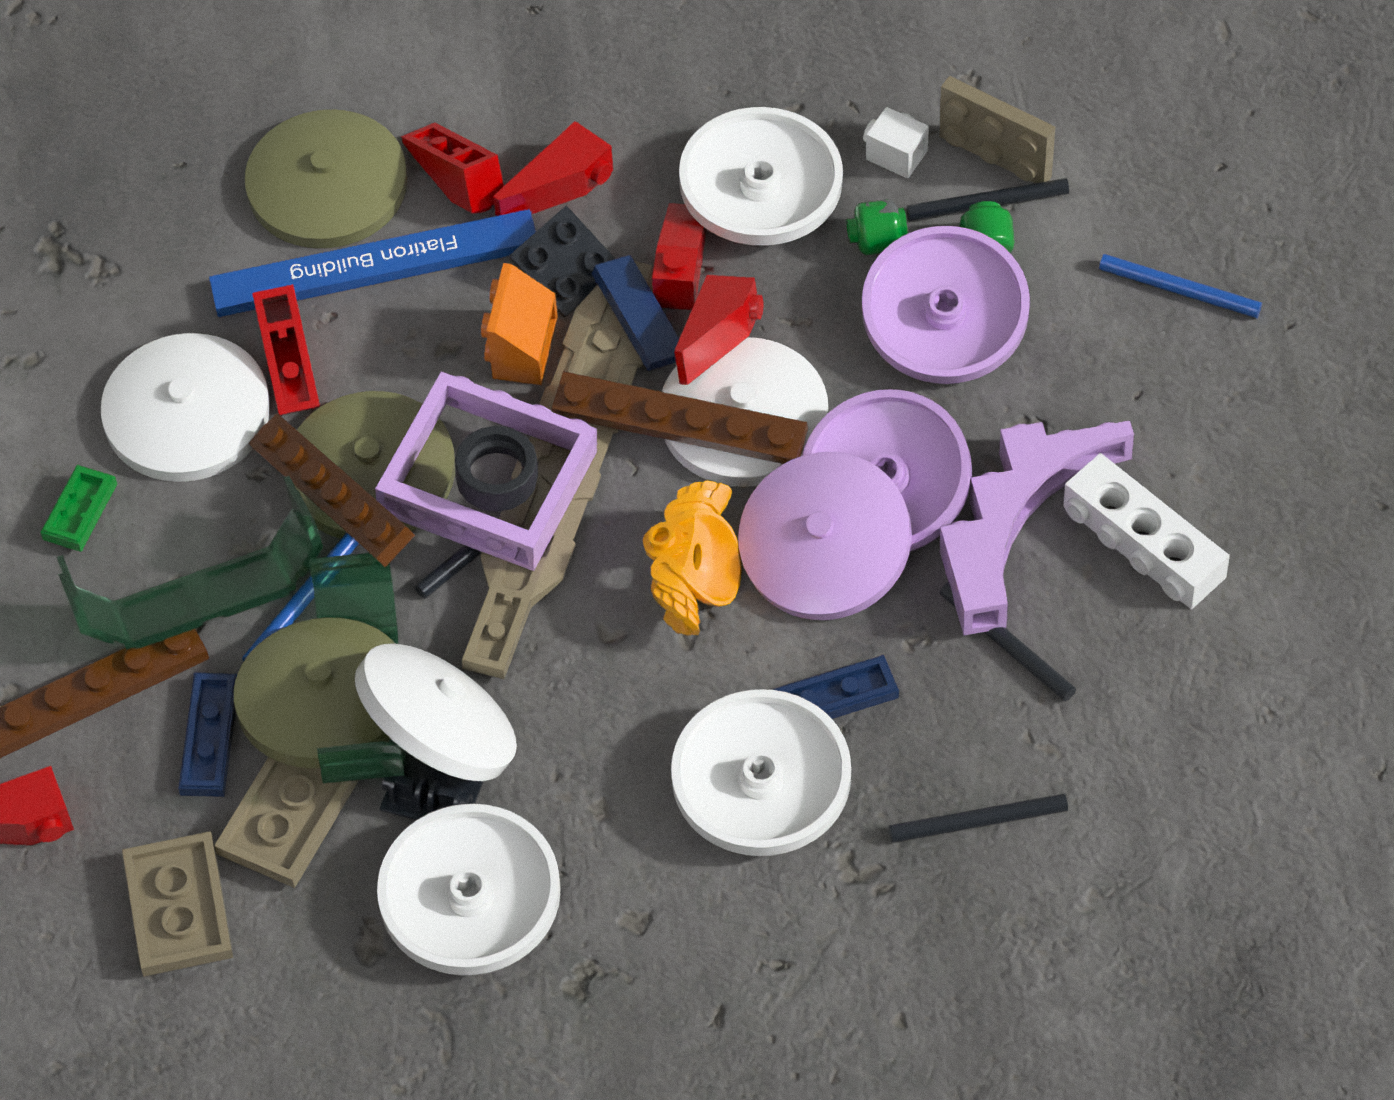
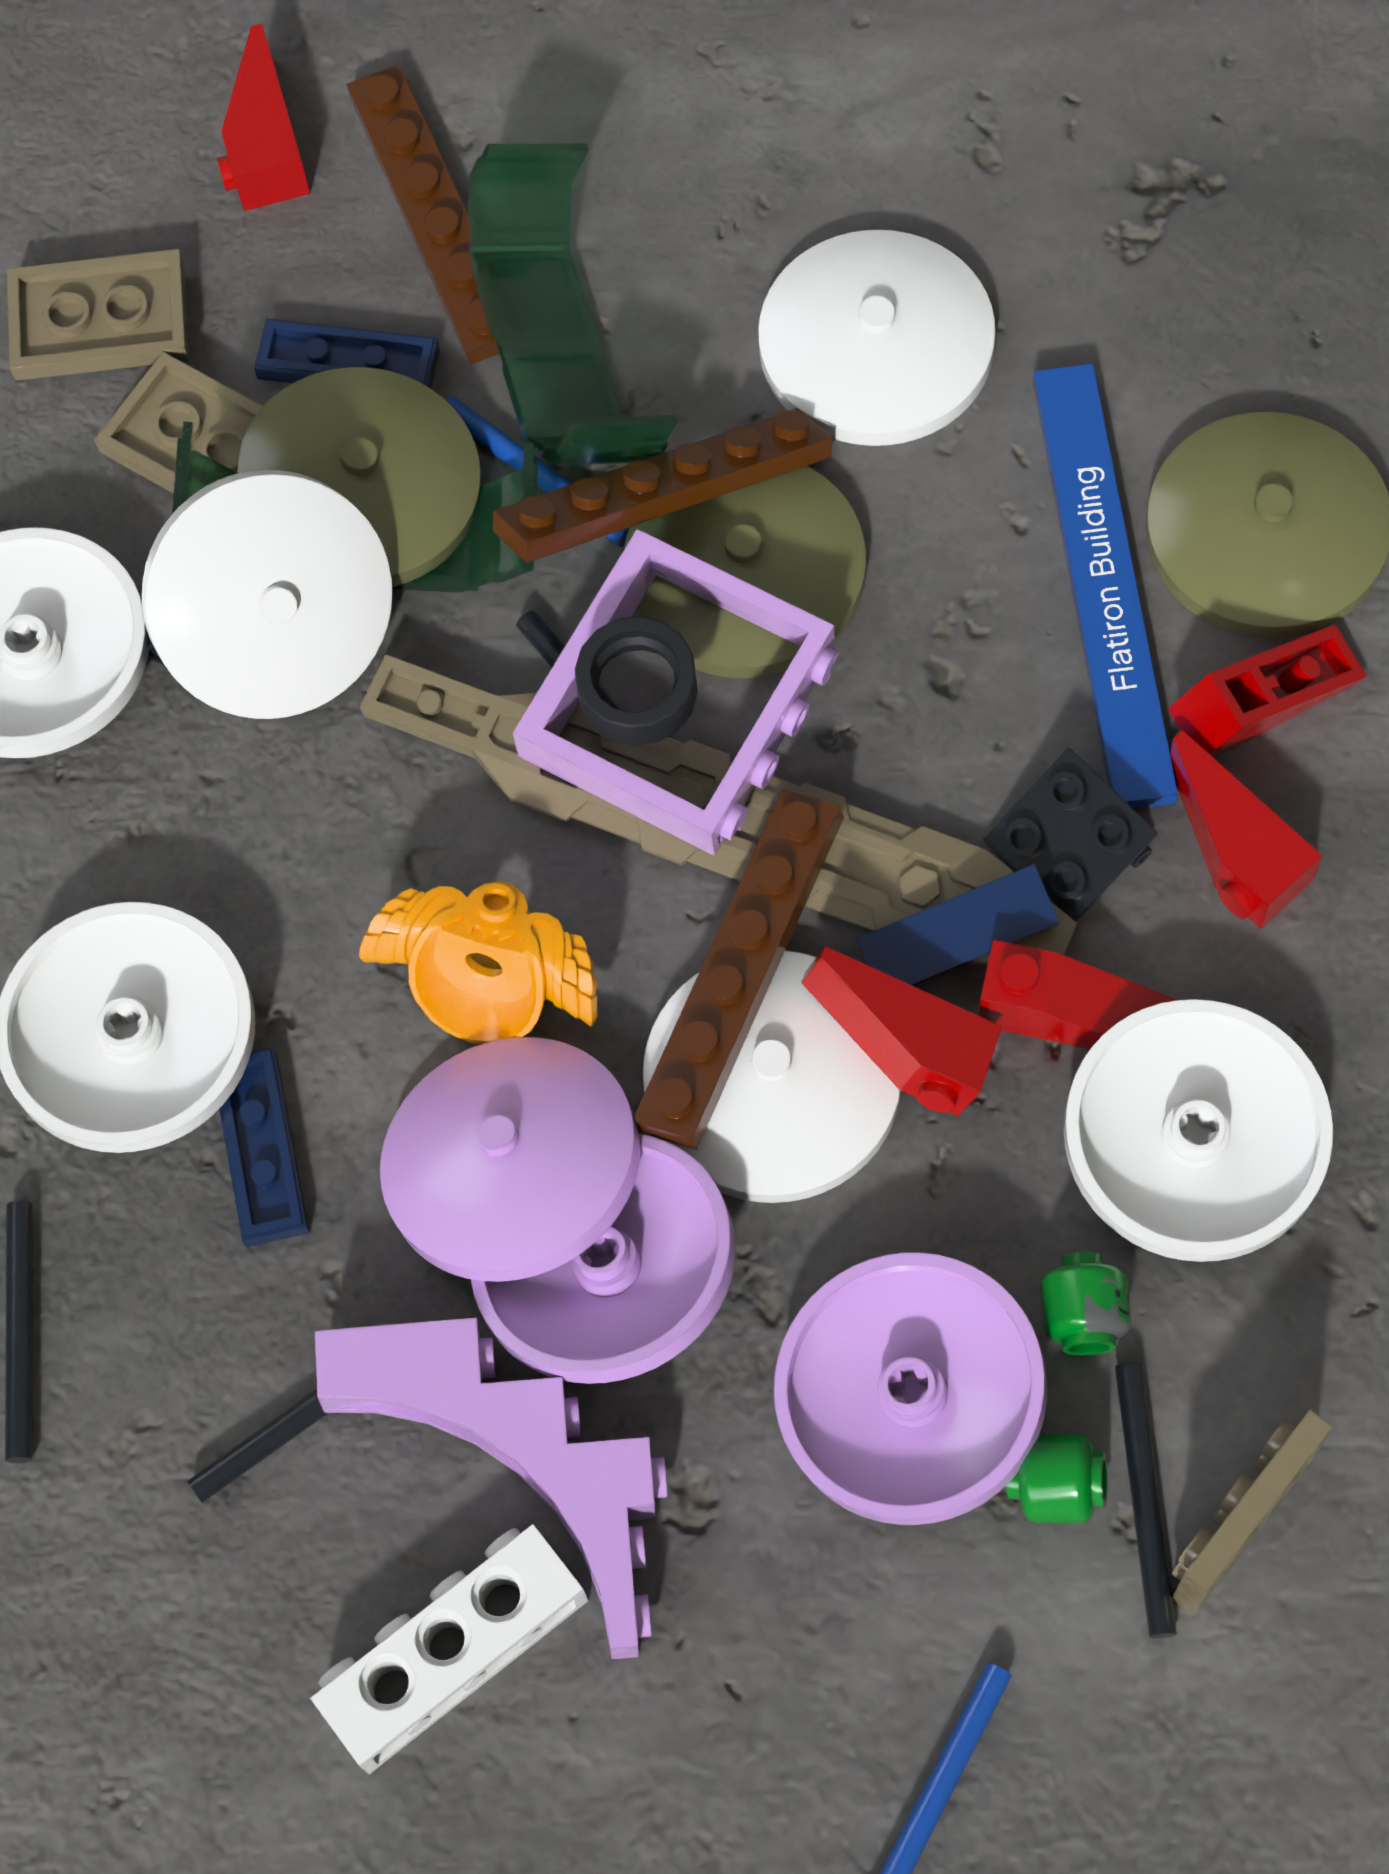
camera: 100 degrees right, 10 degrees up
(78, 508) = (719, 205): green plate -> none
(286, 350) = (952, 453): red slope -> none
(519, 327) = (936, 754): orange slope -> none
(896, 142) = (1266, 1358): white brick -> none

